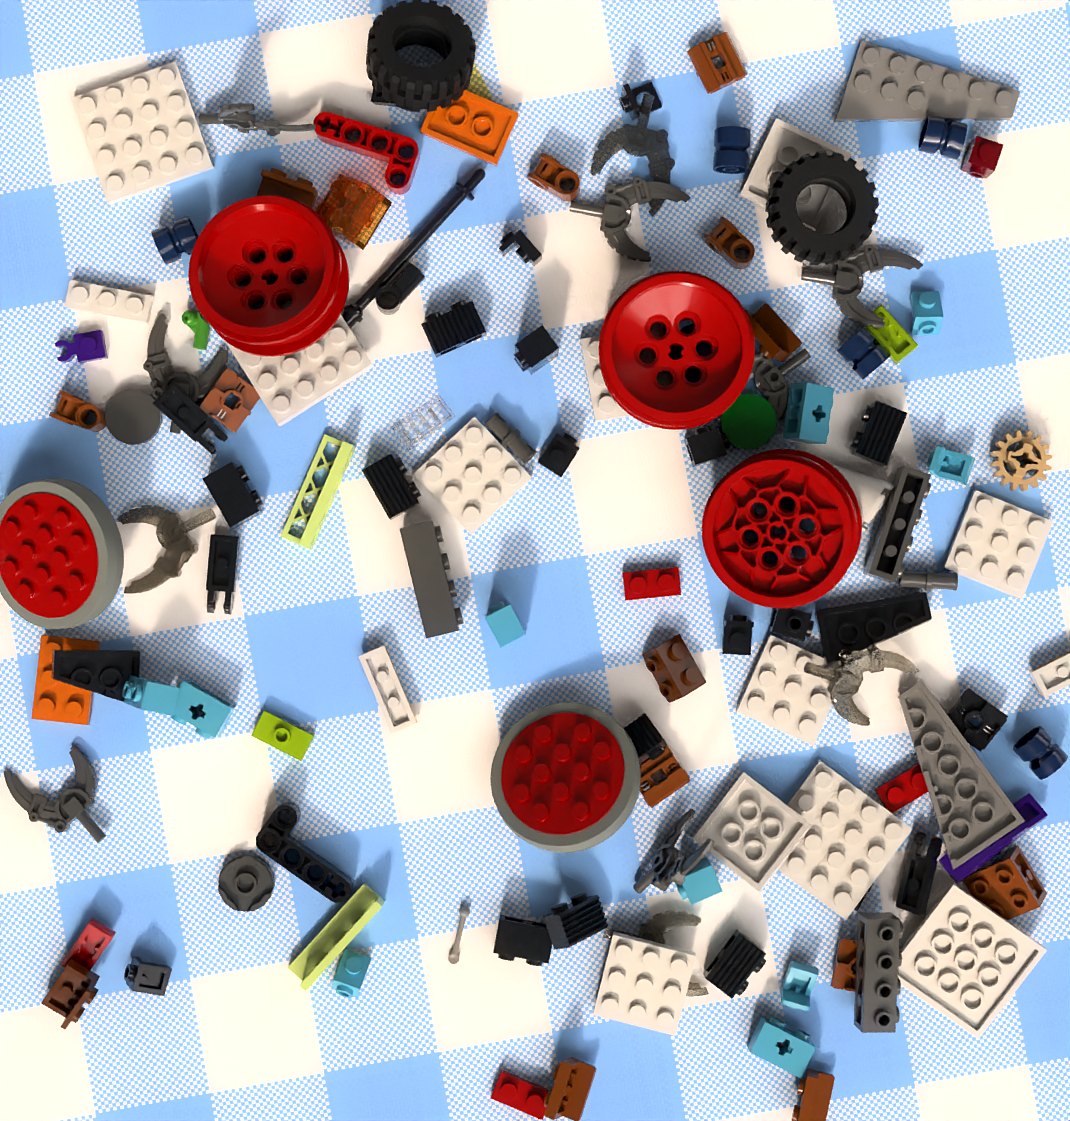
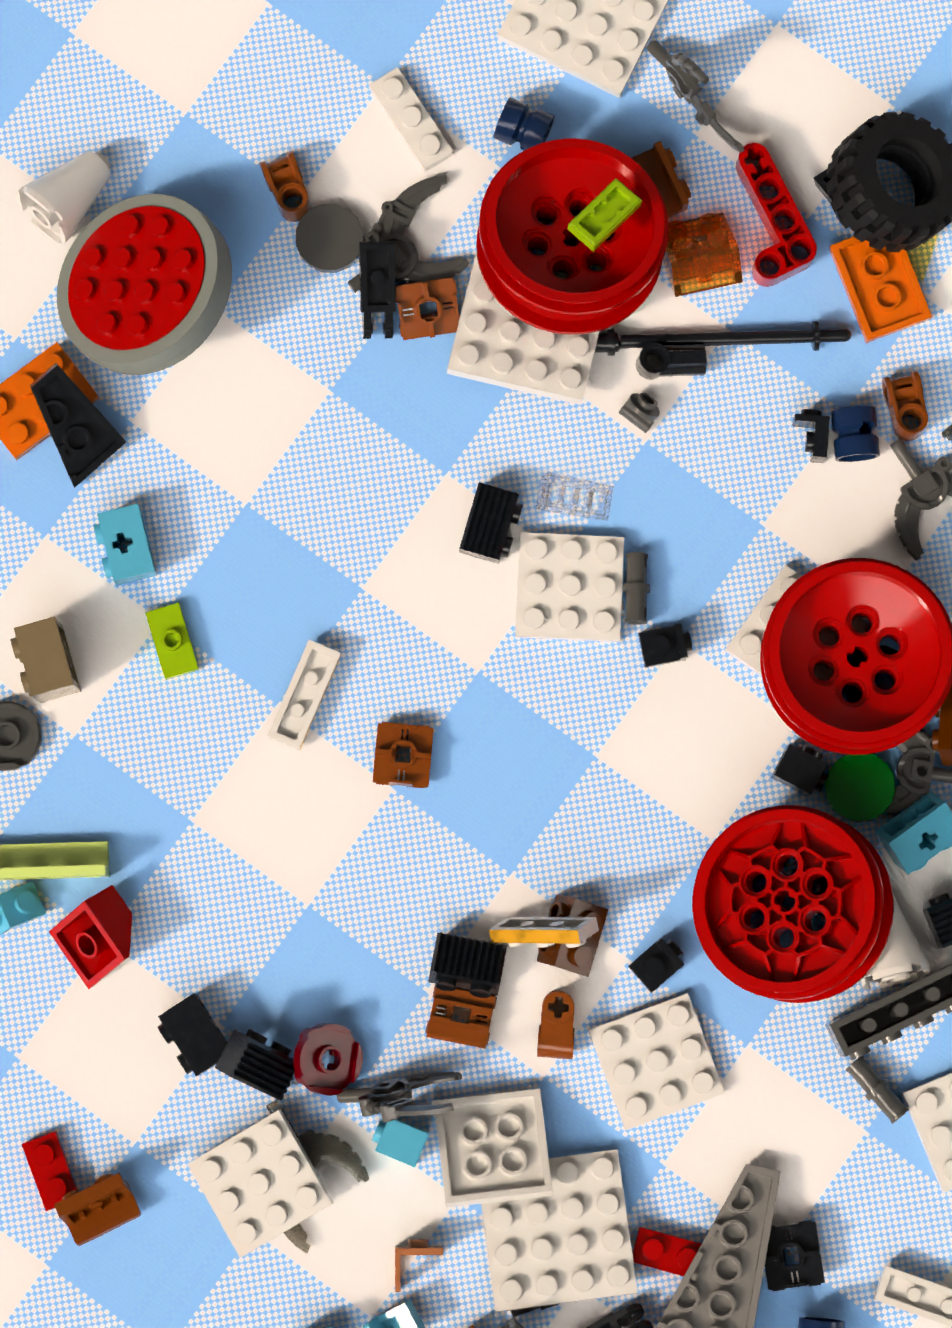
camera: 45 degrees right, 5 degrees down
(87, 347) = (352, 139): dark purple plate -> none
(150, 695) = (97, 487): medium azure brick -> none
(172, 535) = (256, 372): clear smoke bar -> none
(199, 326) = (466, 218): bright green arm -> none
(222, 570) = (268, 446): black hinge -> none
(223, 821) = (46, 660): none -> dark tan brick
(233, 494) = (346, 391): black brick -> none
(275, 245) = (604, 214): none -> lime plate
(307, 856) = (83, 767): black beam -> none
(327, 493) = (423, 474): yellowish green fence -> none
(410, 335) = (640, 410): none -> dark grey plate
(412, 942) = (96, 935): none -> red slope
(430, 579) = (440, 637): dark grey brick -> none
(453, 328) = (684, 442): black brick -> none
(453, 957) = (118, 988): light grey hinge -> none
(477, 683) = (394, 773): none -> dark orange piece
(504, 624) = (464, 741): medium azure brick -> none
(535, 350) = (735, 533): black brick -> none
(543, 224) = (855, 433): none -> dark blue wheel
(565, 777) = (380, 927): red wheel -> none
(595, 877) = (309, 1053): none -> dark red plate
(651, 583) = (629, 841): red plate -> none
(658, 684) = (544, 931): none -> plate
(720, 730) = (556, 1033): none -> dark orange piece
(735, 964) = (357, 1251): black brick -> none
(765, 930) = (414, 1247): none -> nougat bracket
(791, 623) = (716, 1001): black brick -> none
(848, 677) = (718, 1099): clear smoke bar -> none
(869, 623) = (778, 1069): black wing -> none

